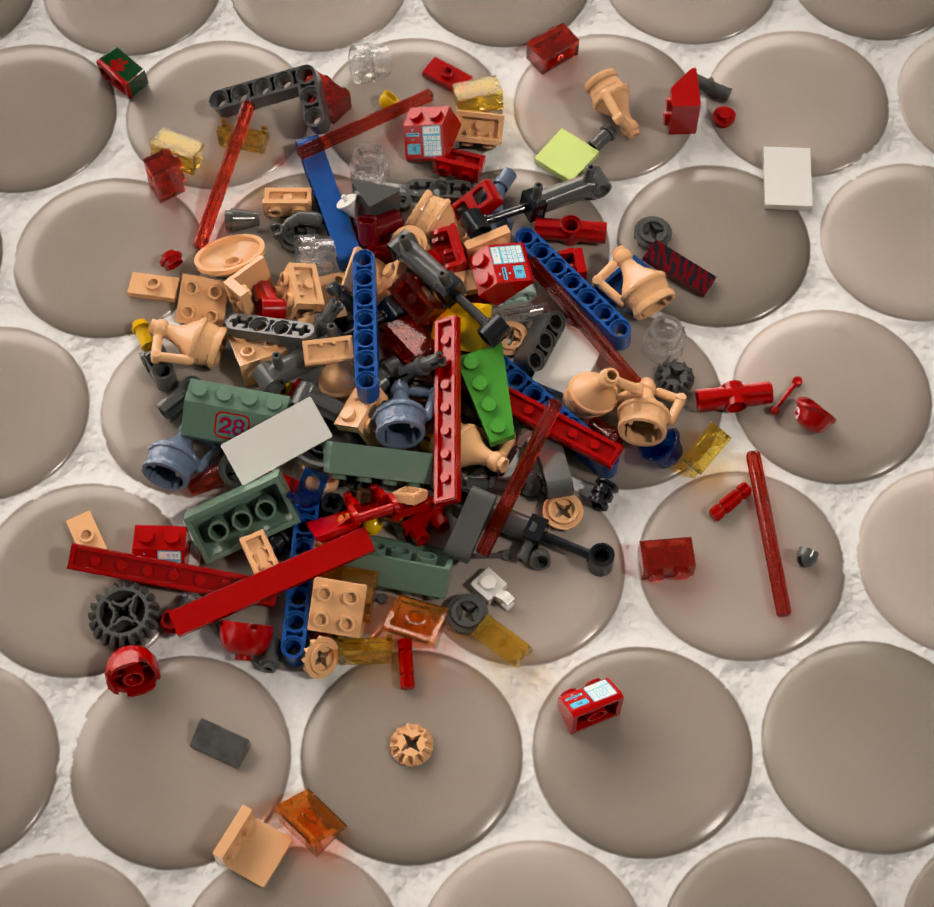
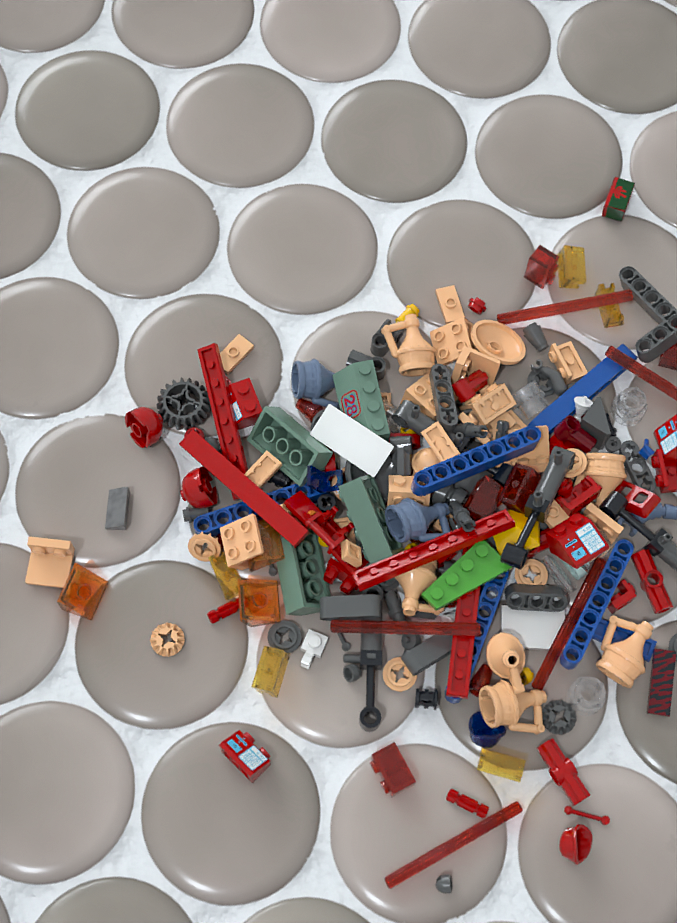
camera: 65 degrees right, 5 degrees up
(426, 172) = (646, 451): none -> blue hand

